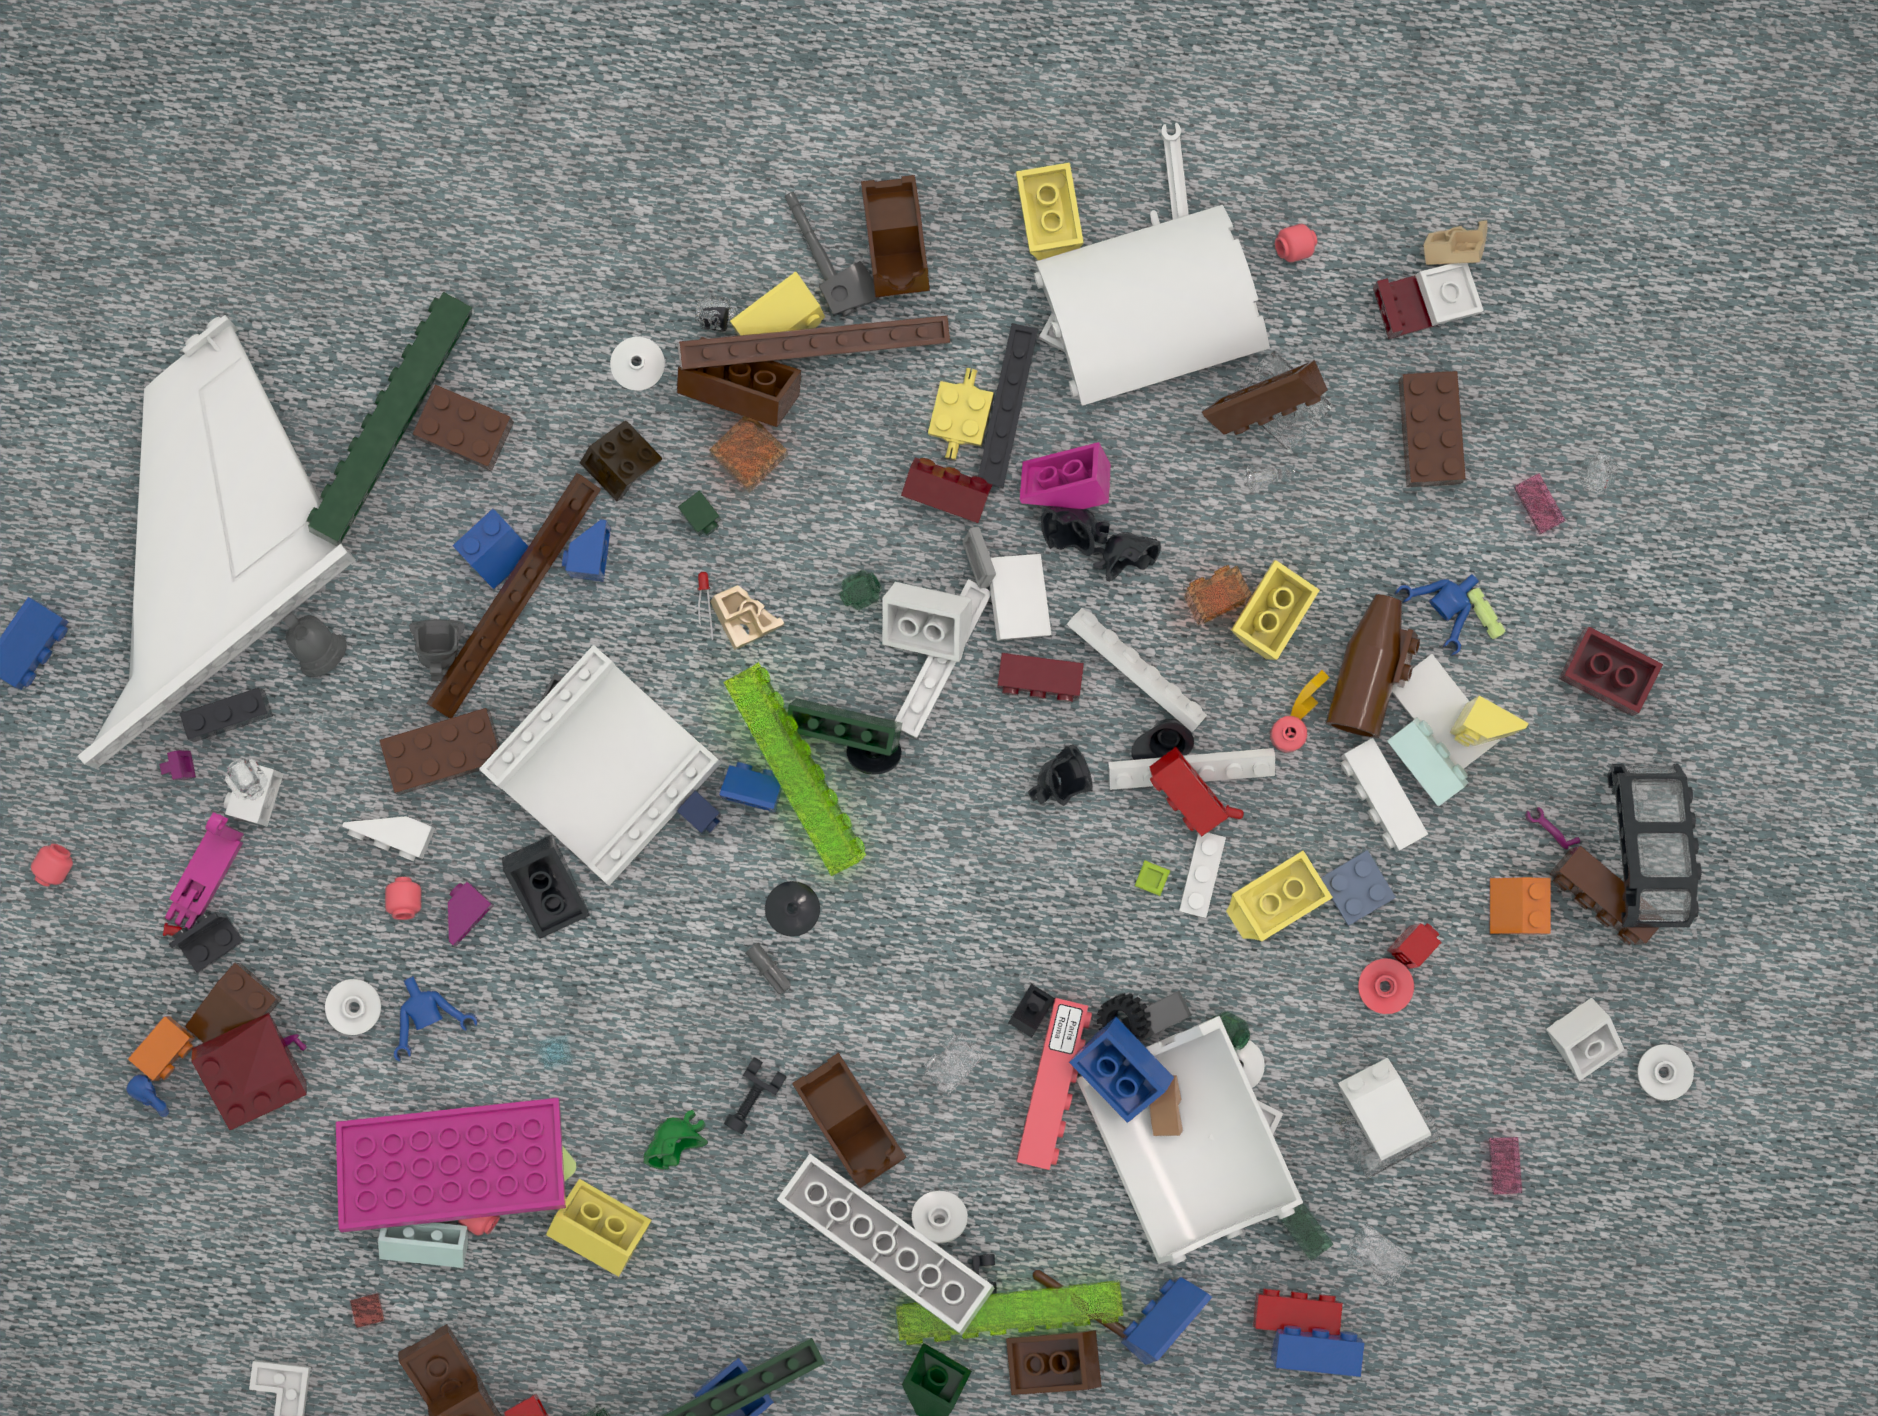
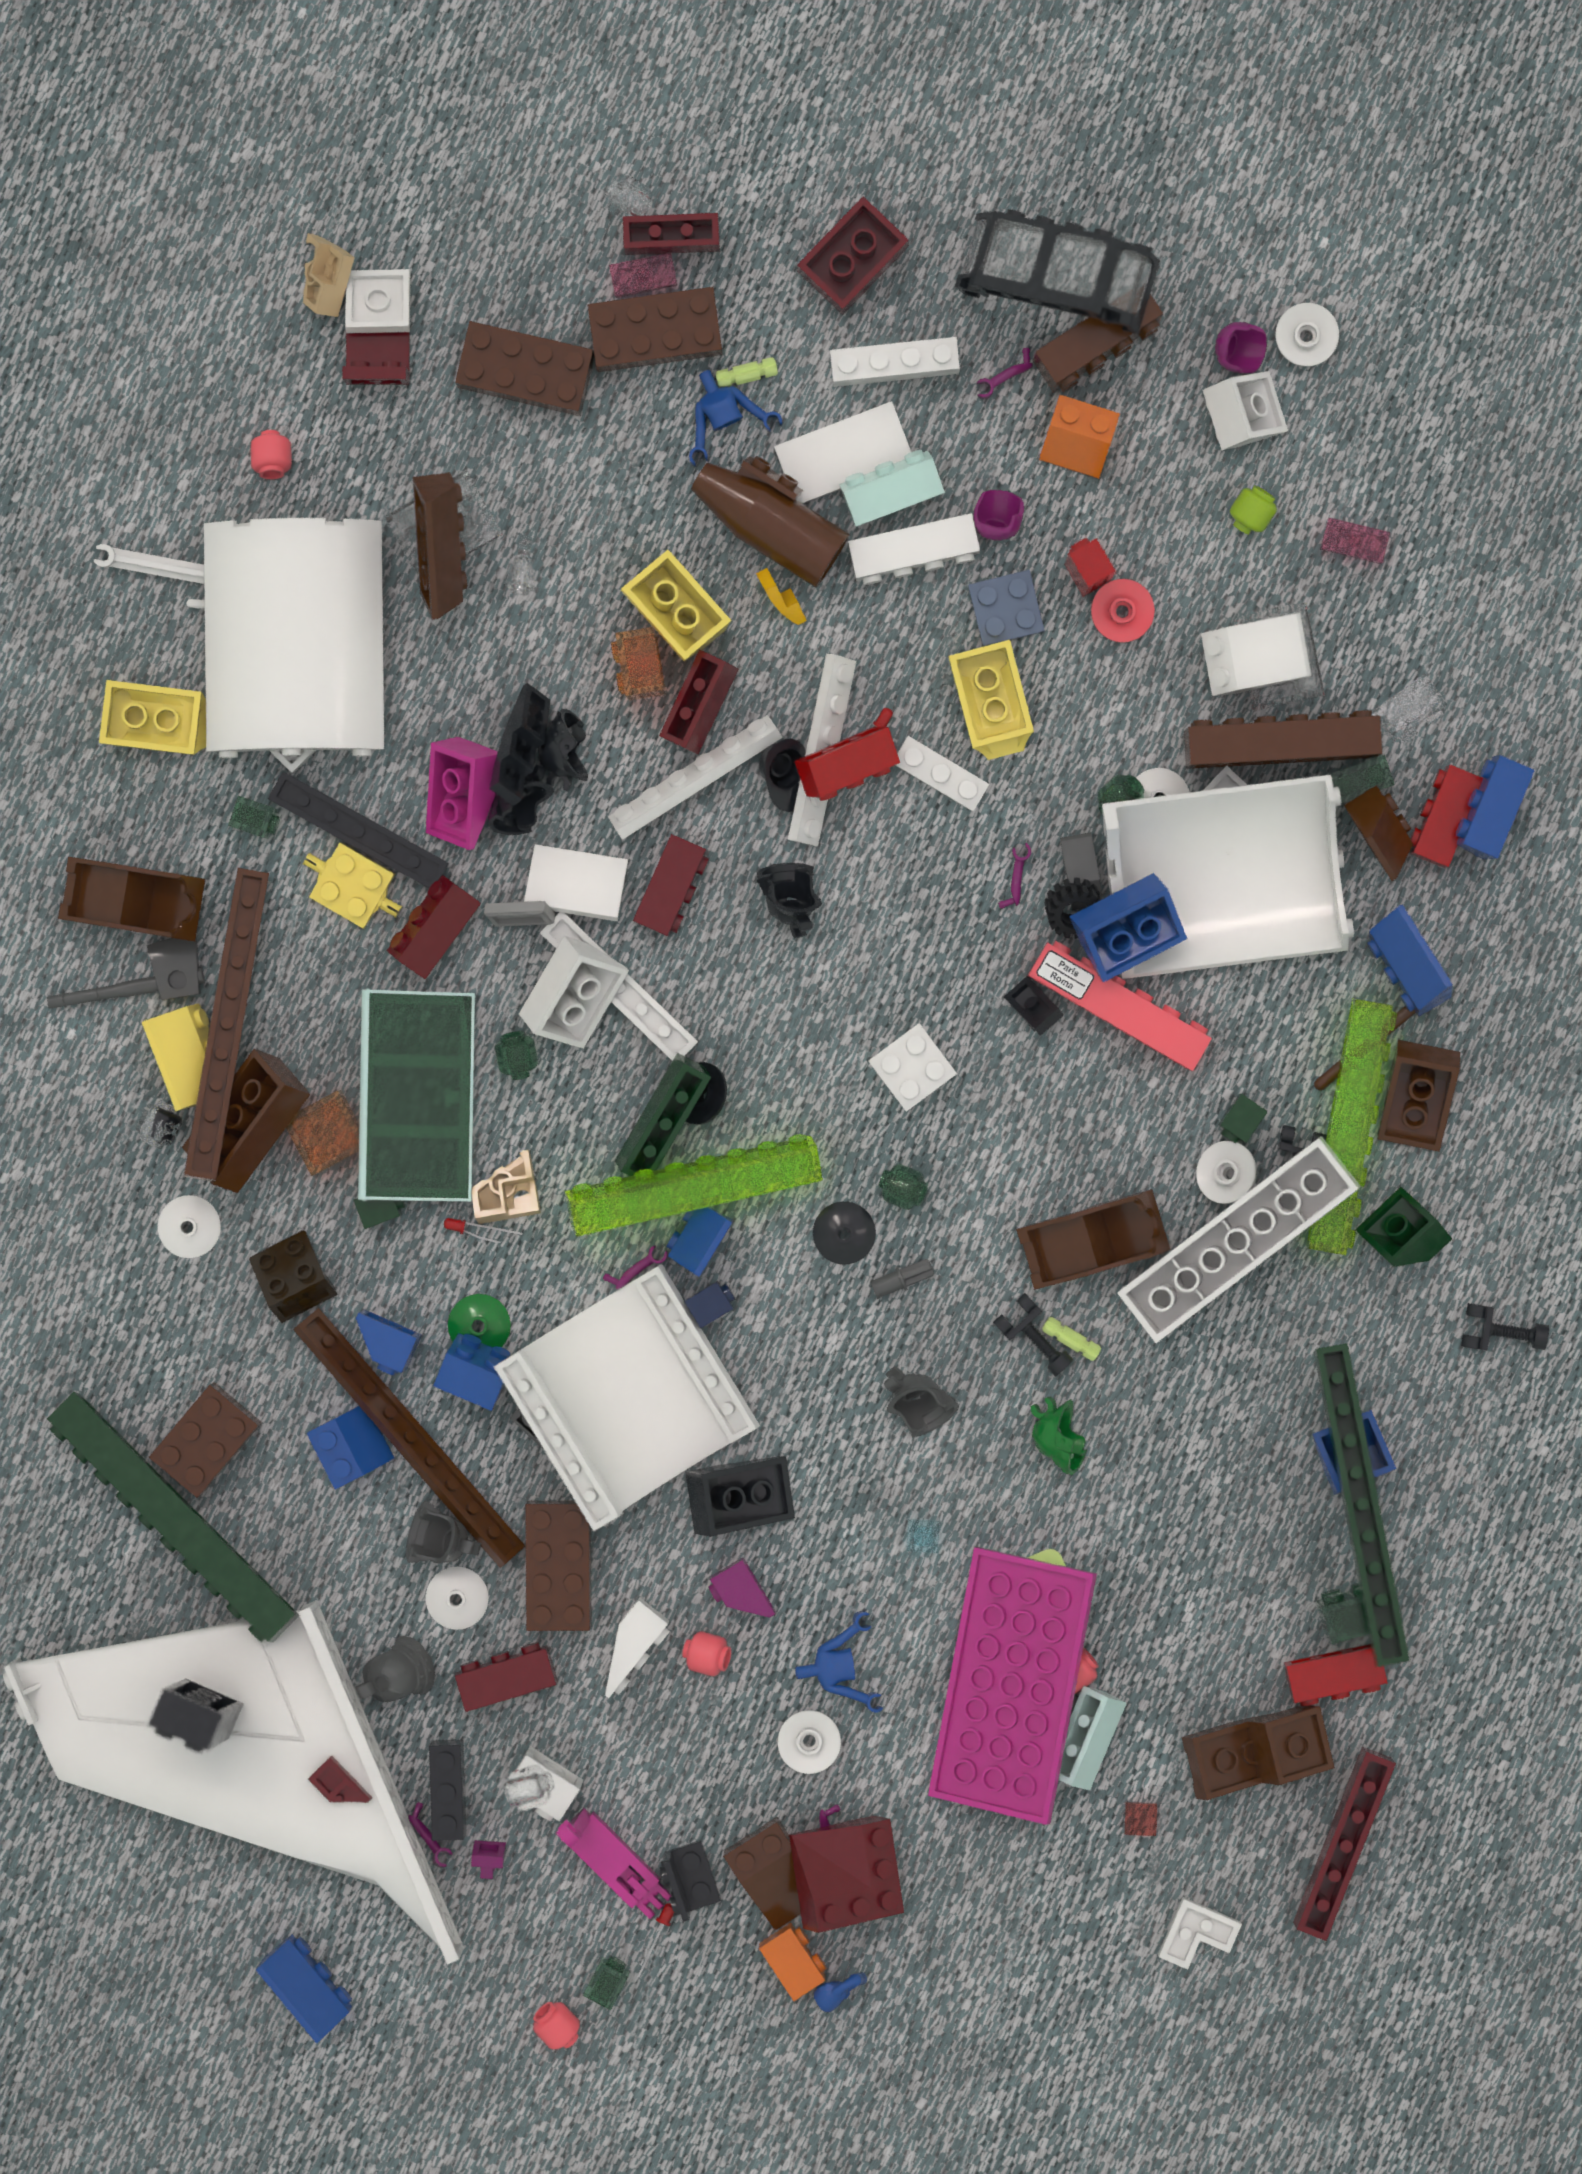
camera: 65 degrees left, 5 degrees up
(100, 896) = (607, 1982): none -> clear green brick
(185, 706) = (427, 1836): none -> magenta piece
(204, 619) = (337, 1784): none -> dark red tile
(228, 481) = (195, 1715): none -> black brick
(335, 735) = (505, 1676): none -> dark red brick
(404, 678) = (462, 1582): none -> white dish
(582, 627) = (470, 1371): none -> blue brick
(598, 1227) = (1127, 1544): light yellow slope -> none
(631, 639) = (483, 1308): none -> green dish
(657, 1019) = (922, 1414): none -> dark grey helmet
(709, 742) = (635, 1269): none -> magenta piece
(759, 1127) = (1071, 1338): none -> yellowish green axle
(801, 516) = (416, 1096): none -> clear green door
(846, 946) = (903, 1187): none -> clear green head
(949, 923) = (912, 1067): none -> white brick
(954, 1062) = (1064, 1106): clear brick -> none
(988, 1216) = (1241, 1119): none -> dark green brick
(992, 317) = (254, 817): none -> clear green brick
(1126, 515) = (519, 743): none -> black slope
(1130, 965) = (1016, 879): none -> magenta piece
(1152, 878) = (928, 829): lime tile -> none
(1165, 1112) = (1188, 893): medium nougat slope -> none
(1200, 654) = (698, 702): none -> dark red brick
(1270, 1261) = (1382, 829): none -> reddish brown slope
(1281, 740) = (820, 642): coral head -> none
(1318, 1155) = (1283, 741): none -> reddish brown brick
(1433, 857) = (998, 514): none -> magenta hair
(1485, 722) = (869, 414): light yellow slope -> none
(1497, 526) = (655, 329): none -> reddish brown brick
(1504, 1071) = (1253, 510): none -> lime head
(1537, 737) = (894, 361): none -> white brick
(1581, 516) = (671, 233): none -> dark red brick
(1637, 1019) = (1241, 347): none -> magenta hair

